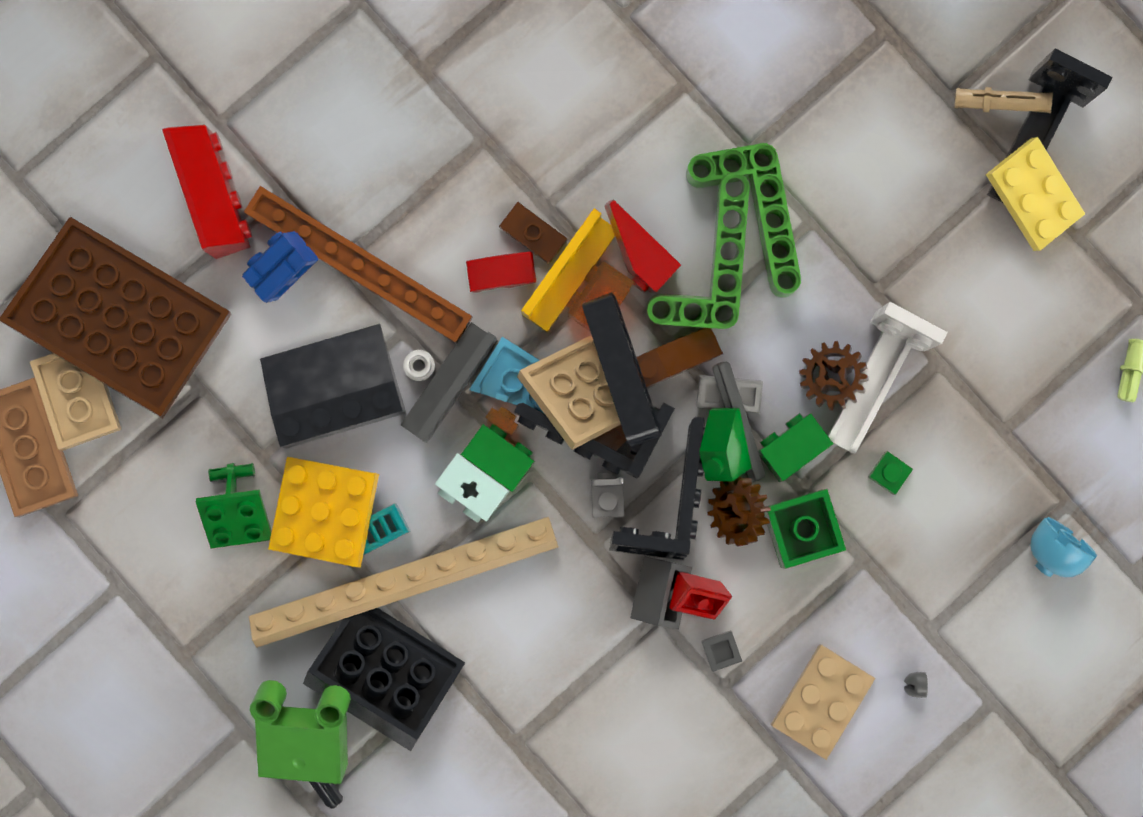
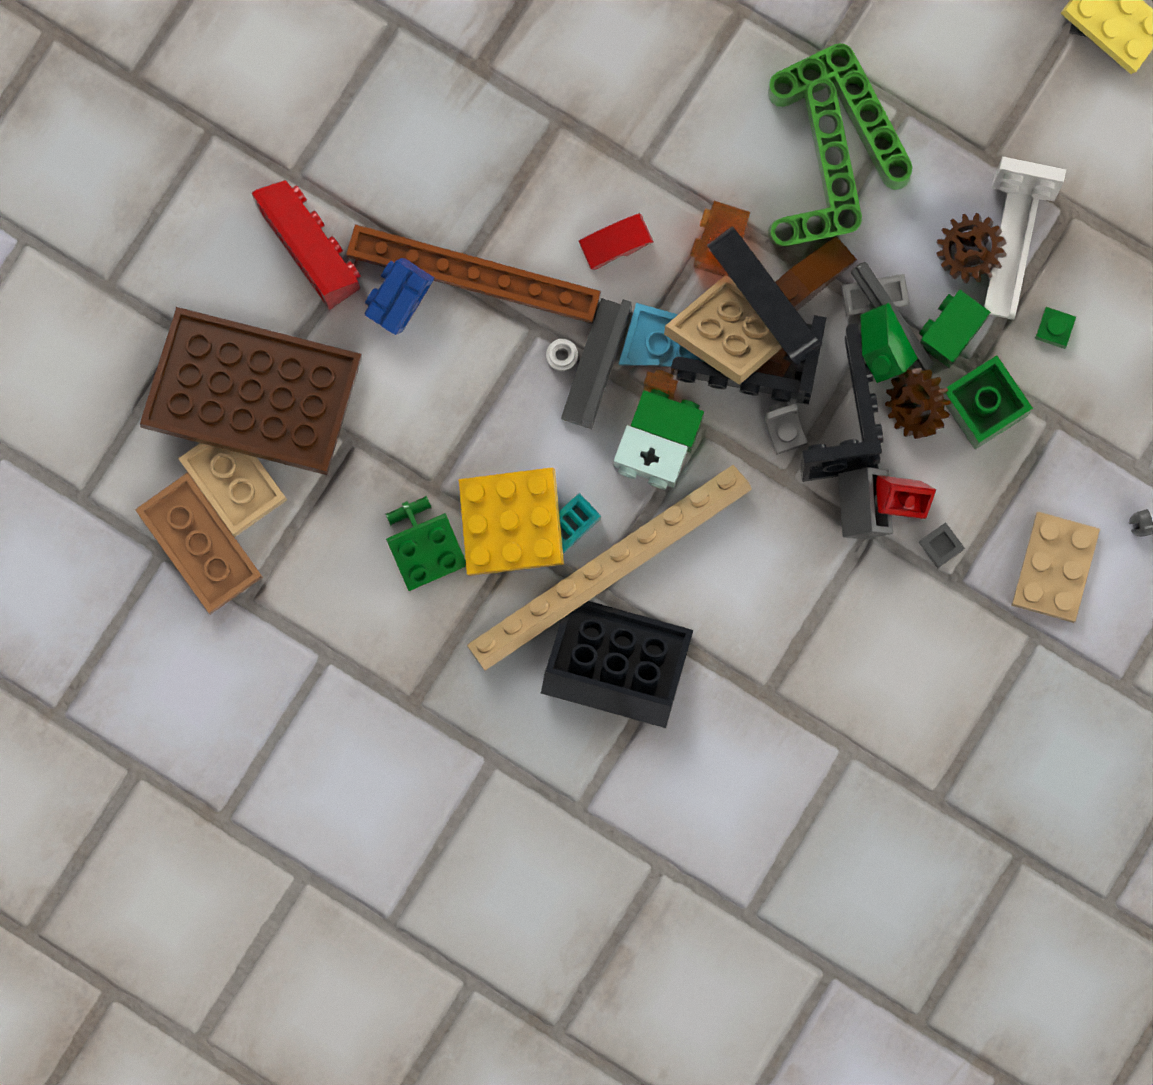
camera: 10 degrees left, 5 degrees down
(302, 741) = (560, 742): bright green piece -> none
(331, 386) = (483, 399): black slope -> none
(533, 233) = (635, 195): reddish brown plate -> none
(569, 271) = (683, 222): yellow fence -> none
(643, 255) = (748, 183): red slope -> none

